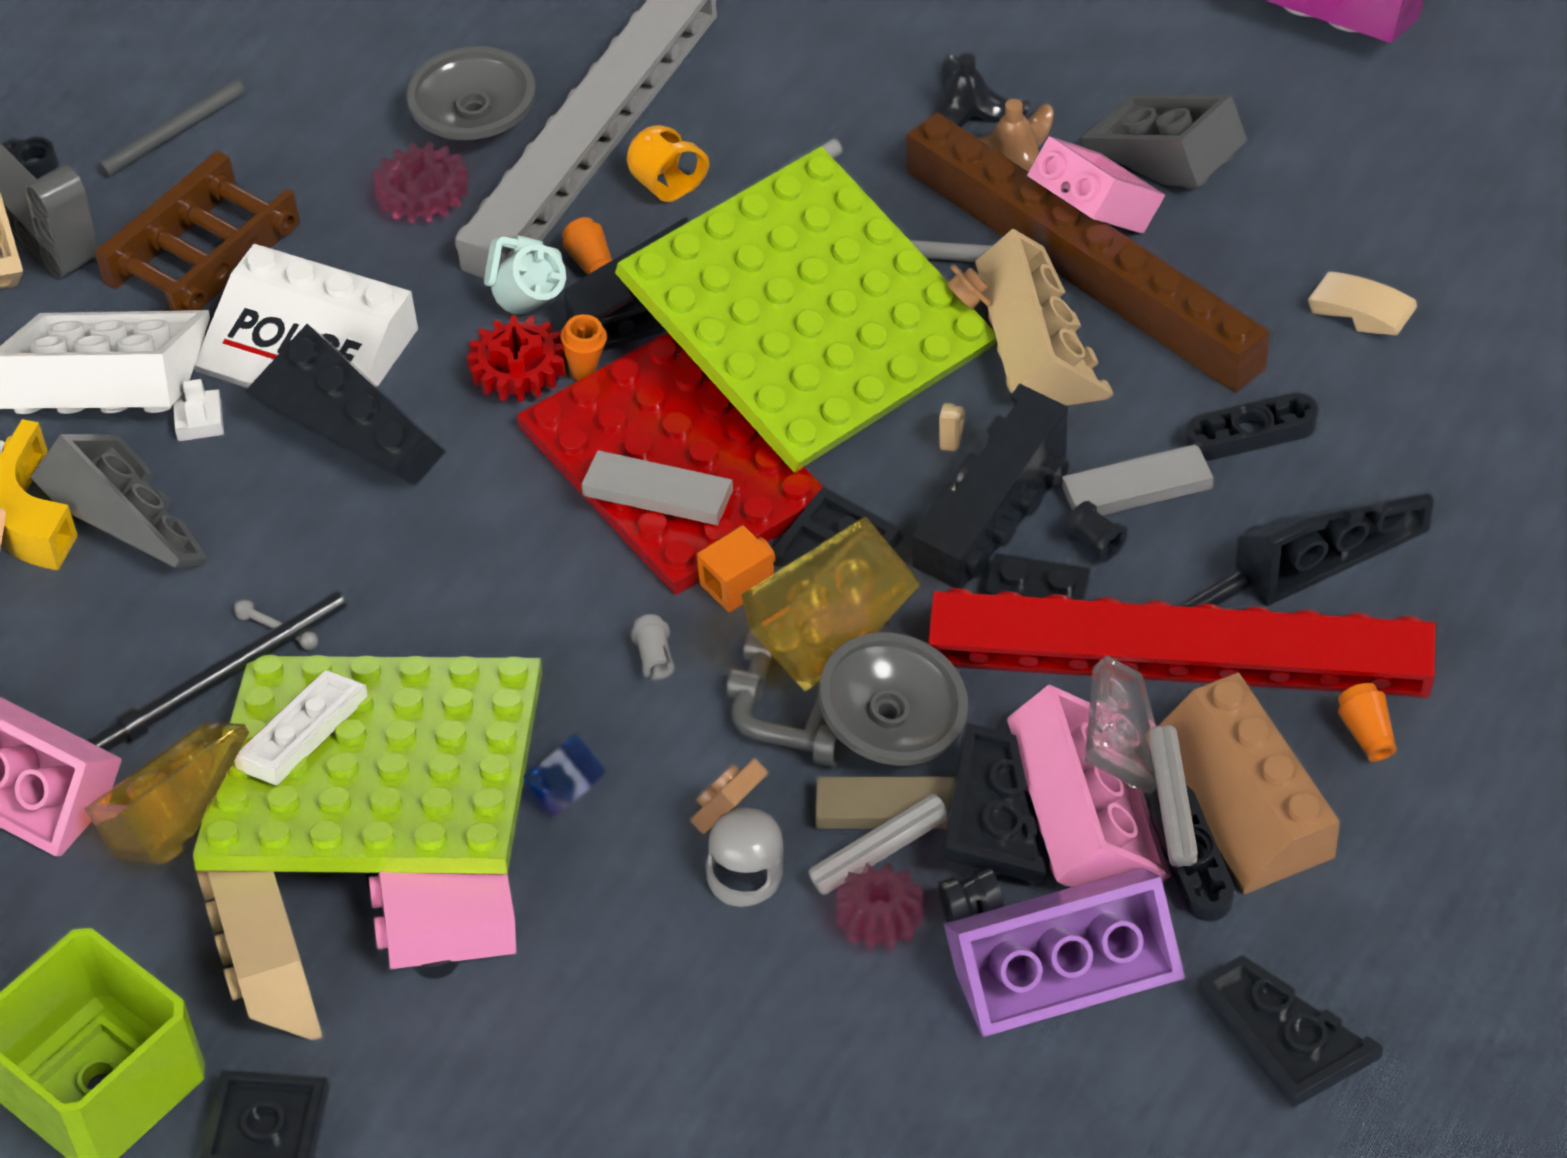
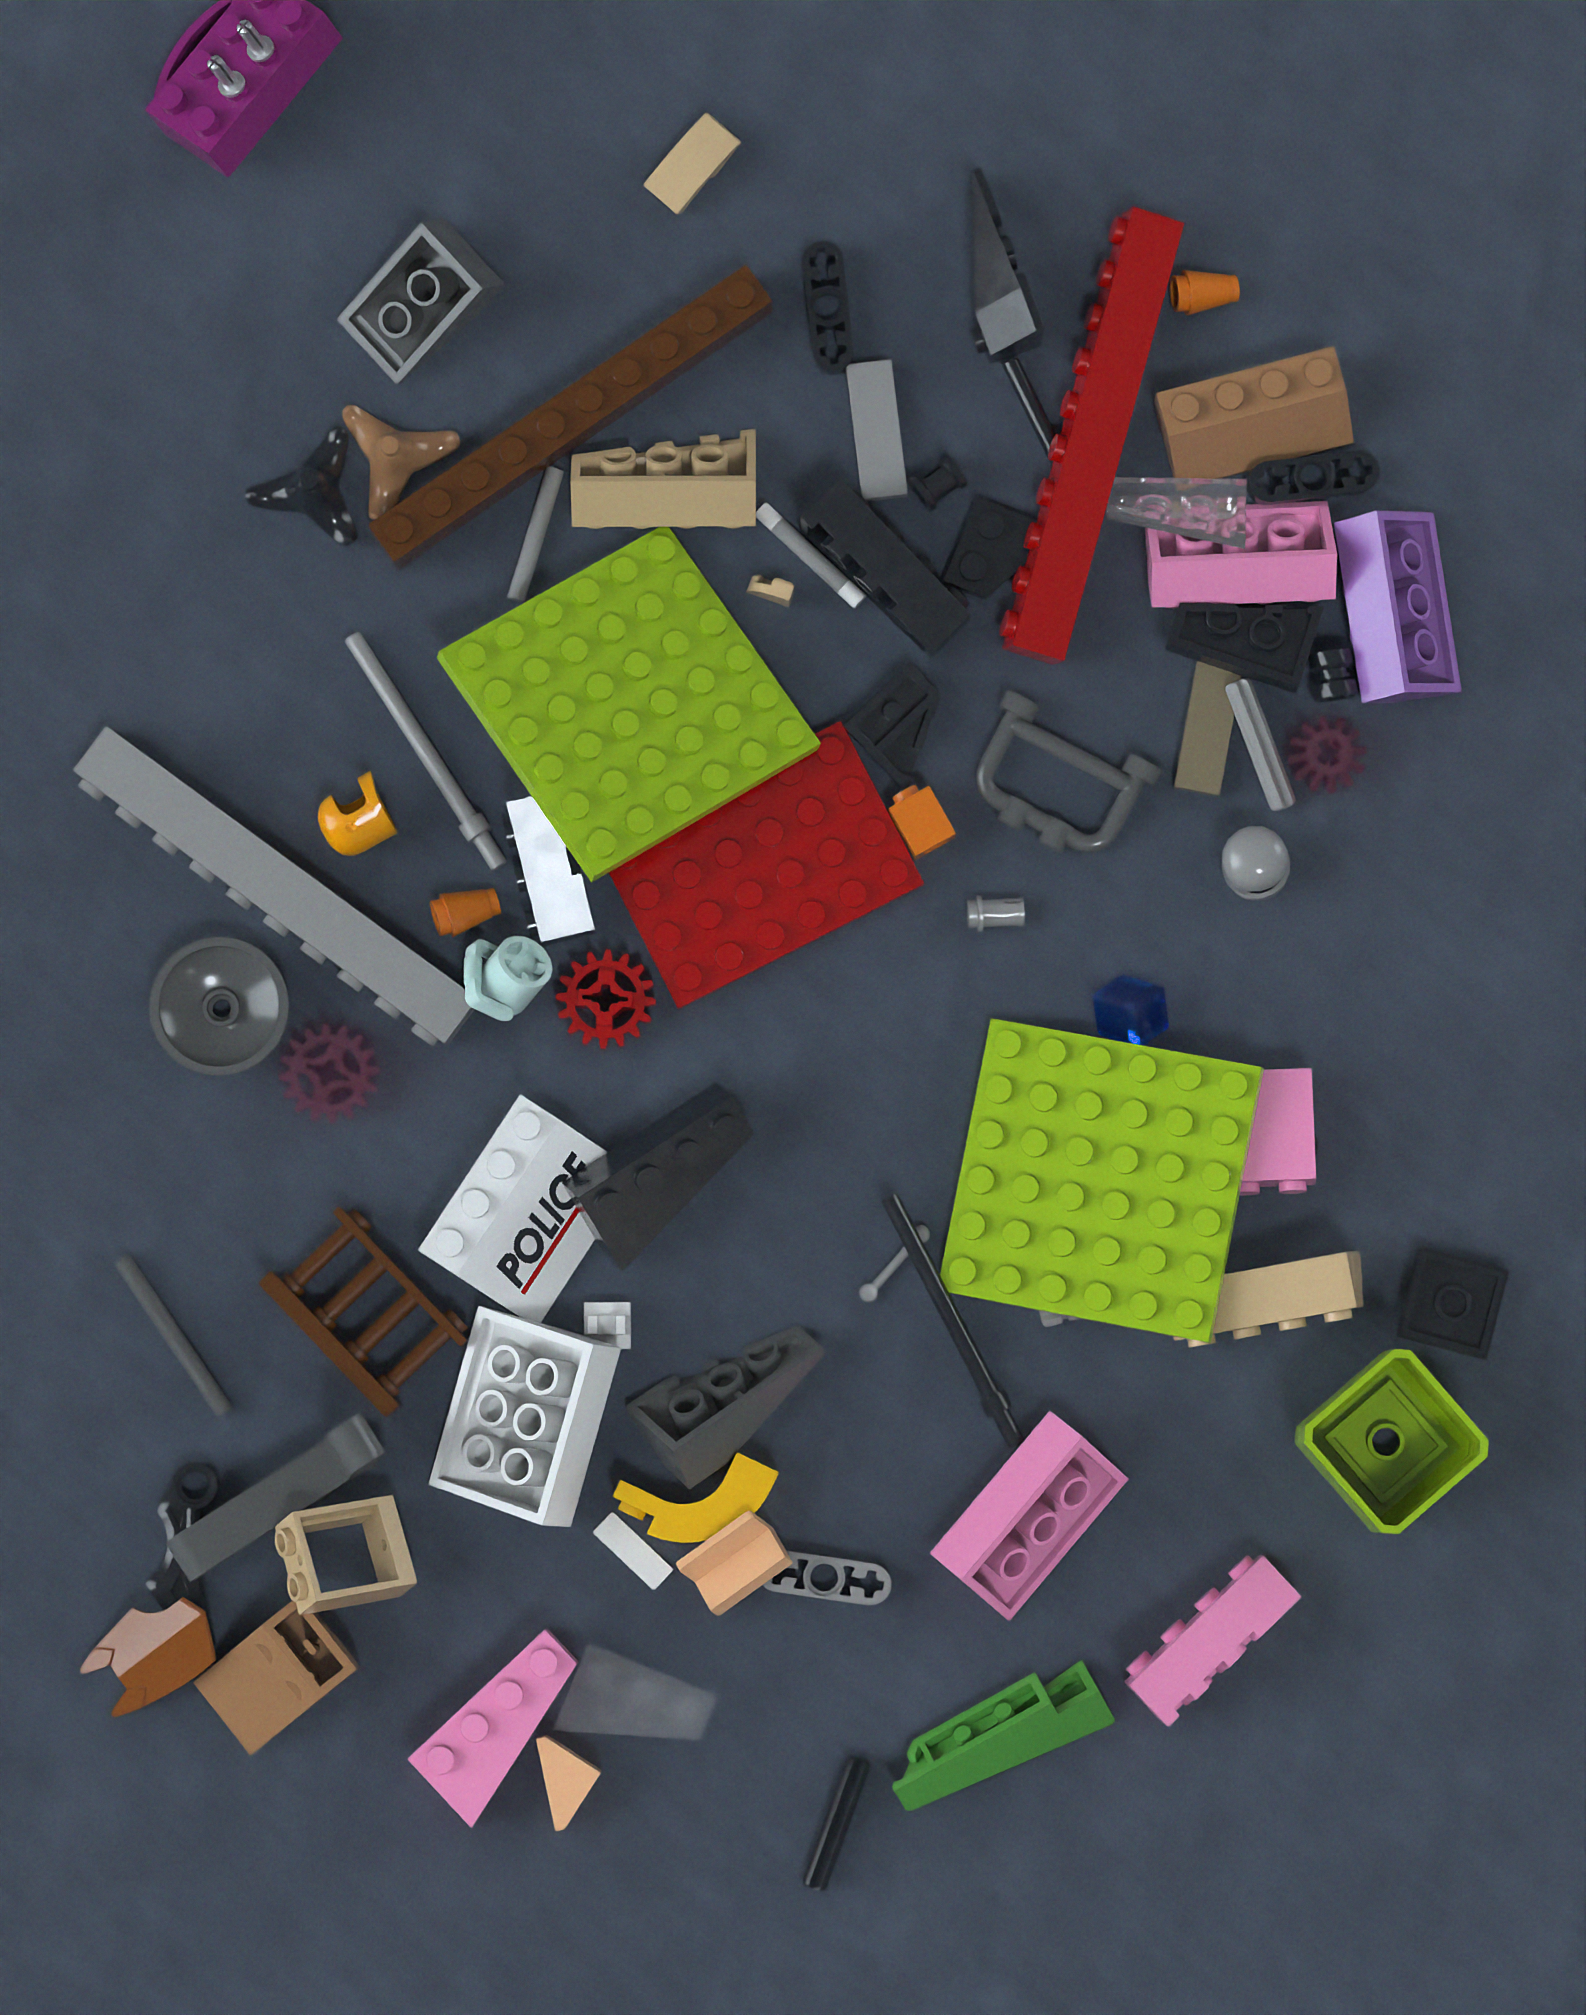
camera: 85 degrees left, 35 degrees up
(167, 797) = (1110, 1361): clear yellow slope -> none
(300, 727) = (1065, 1239): white tile -> none
(583, 344) = (619, 919): orange cone -> none
(657, 487) = (818, 882): light grey tile -> none
(726, 793) = (1203, 866): medium nougat plate -> none
(827, 599) = (1027, 747): clear yellow slope -> none
(898, 679) = (1124, 678): dark grey dish -> none
(969, 287) = (622, 540): medium nougat plate -> none
(1095, 185) = (497, 365): bright pink window -> none
(1173, 796) = (1273, 480): light grey axle -> none
(1284, 1035) = (1508, 443): black wing -> none

